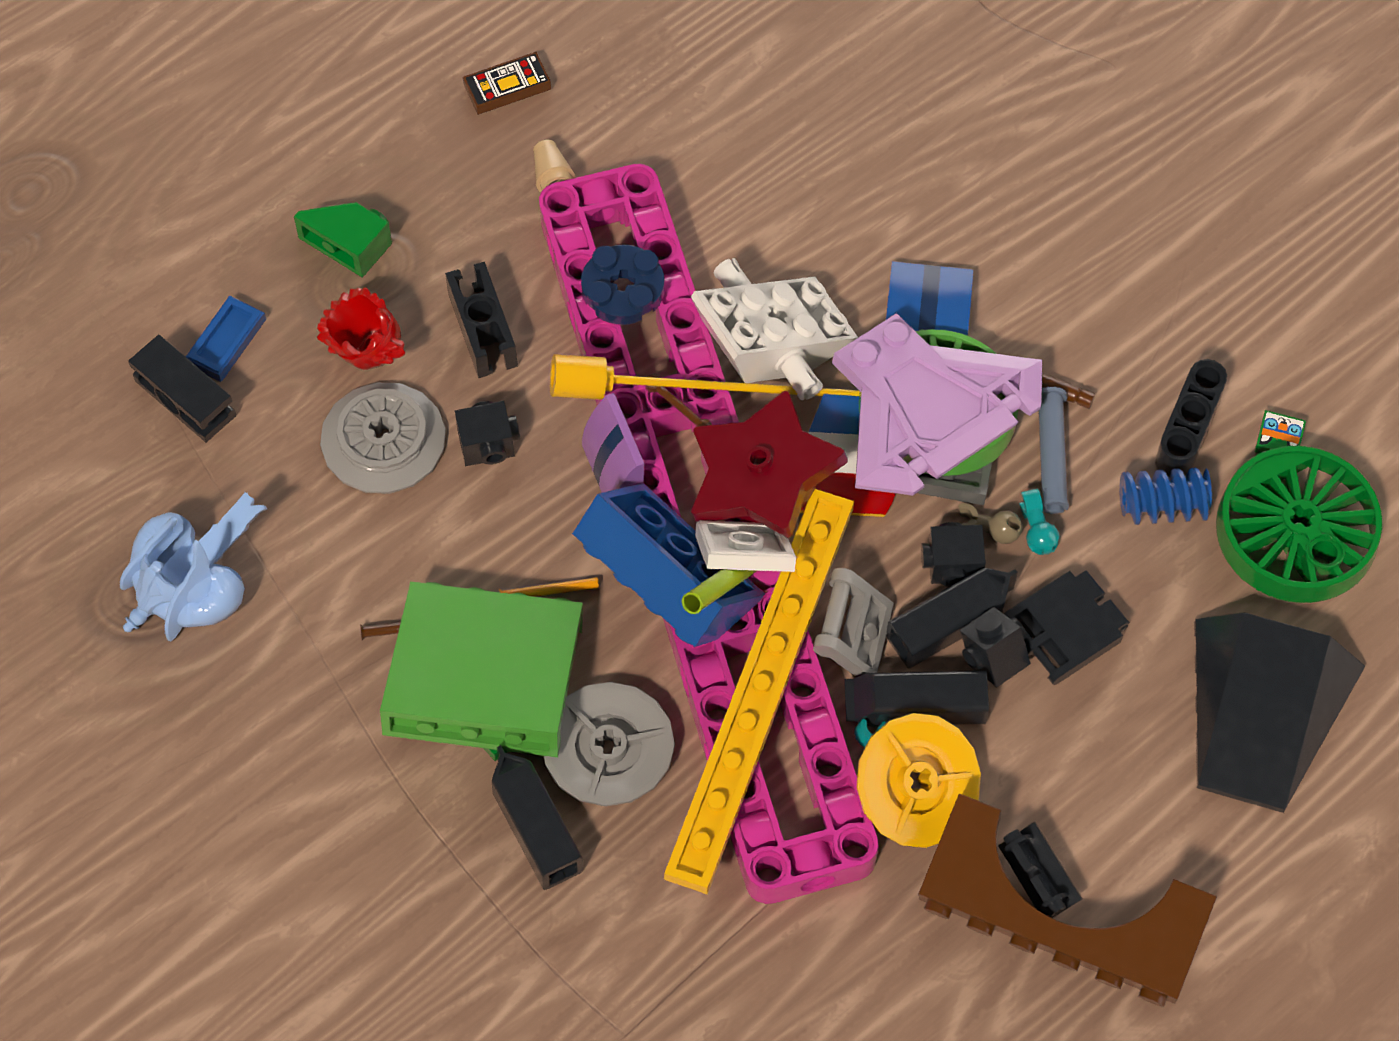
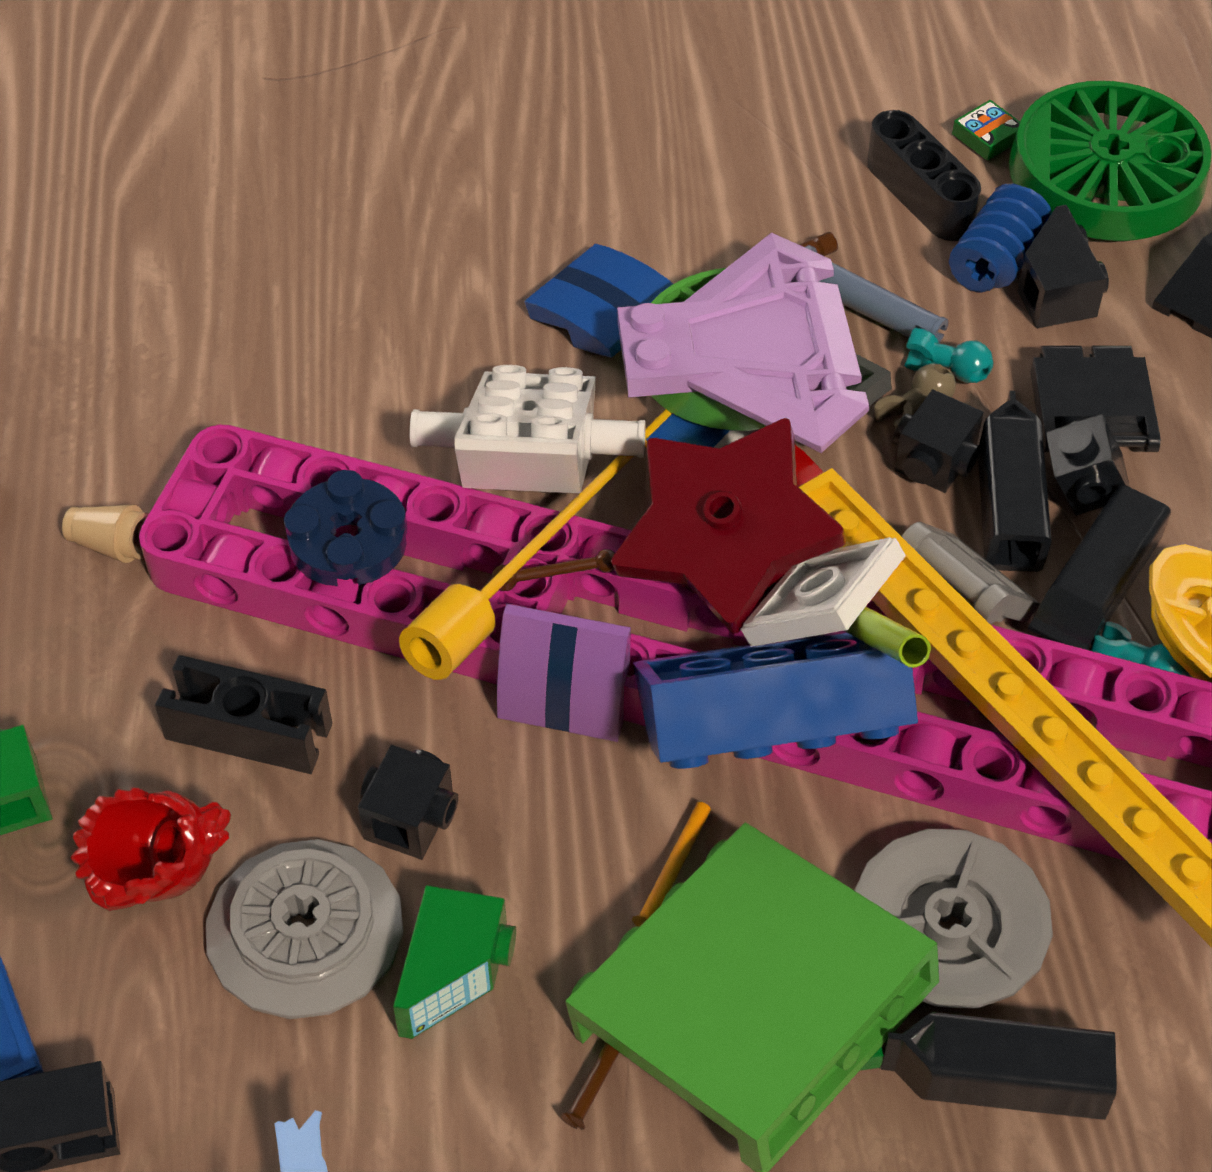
camera: 55 degrees left, 10 degrees down
(405, 515) = (451, 957): none -> green slope
(1164, 545) = (1060, 273): none -> black slope

